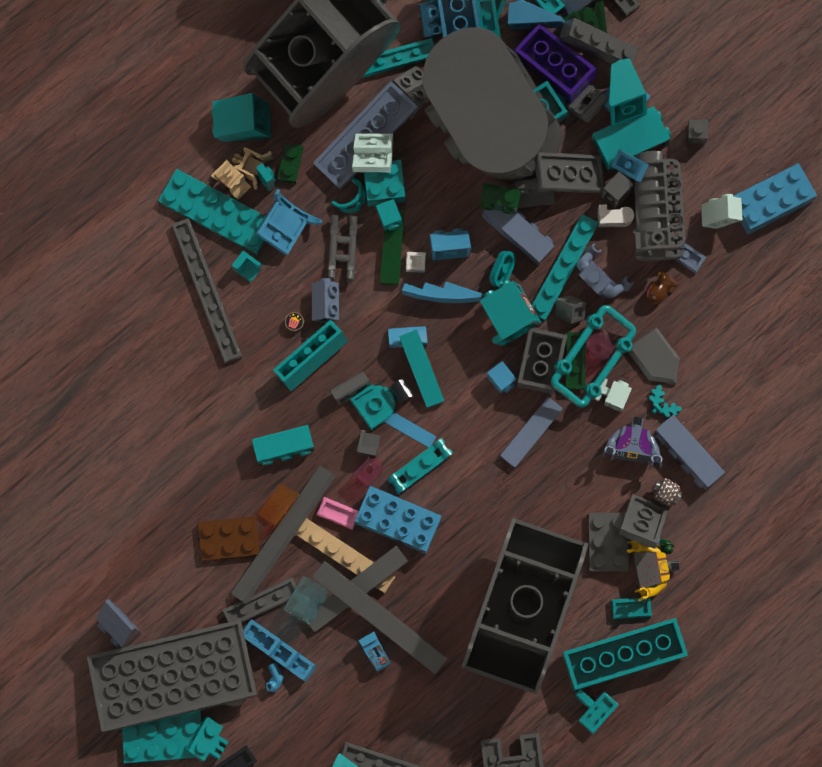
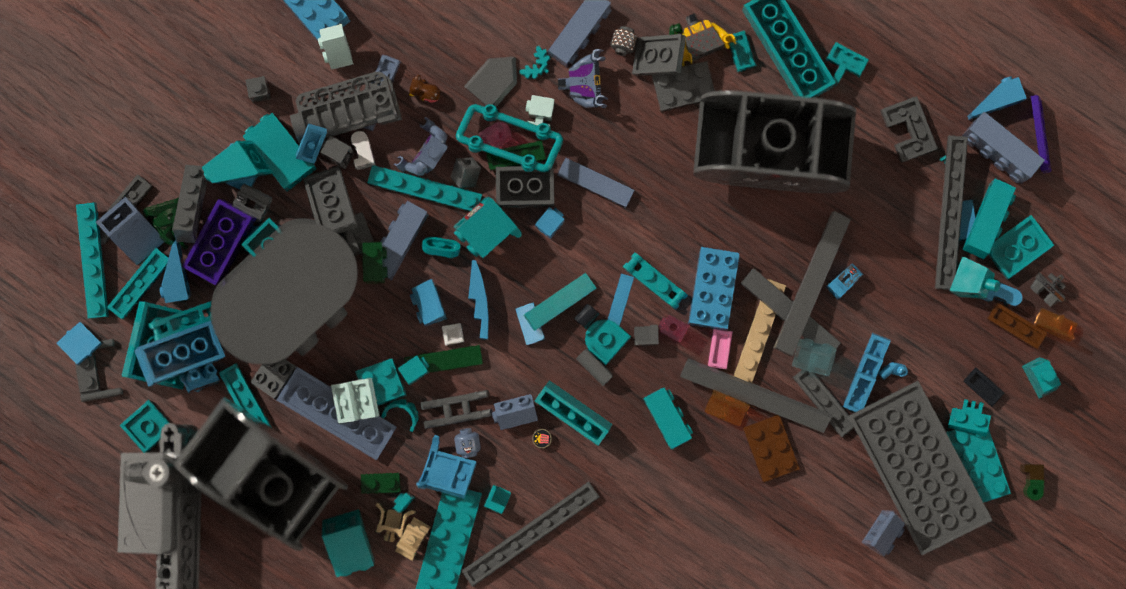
camera: 100 degrees left, 5 degrees up
(307, 250) = (467, 443): none -> sand blue head

